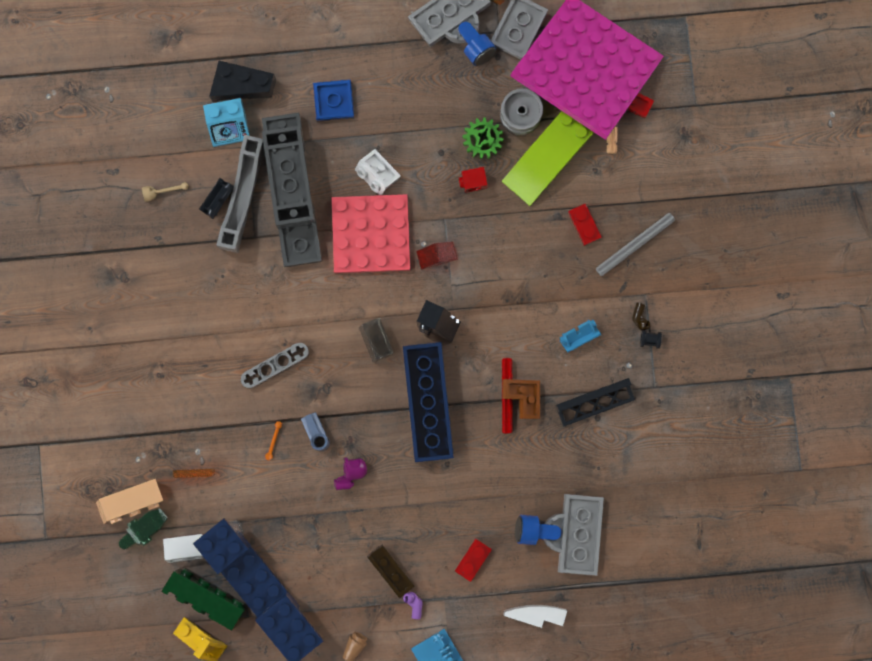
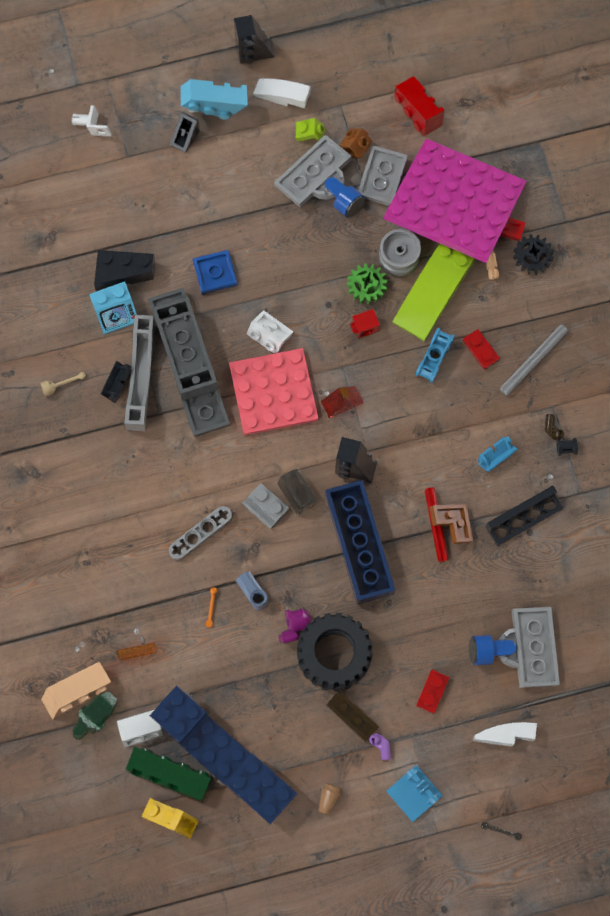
camera: 10 degrees left, 10 degrees down
(343, 348) = (265, 506): none -> light grey plate
(384, 534) = (342, 626): none -> black tyre
(545, 213) = (440, 344): none -> dark azure piece
(648, 135) = (539, 249): none -> black gear

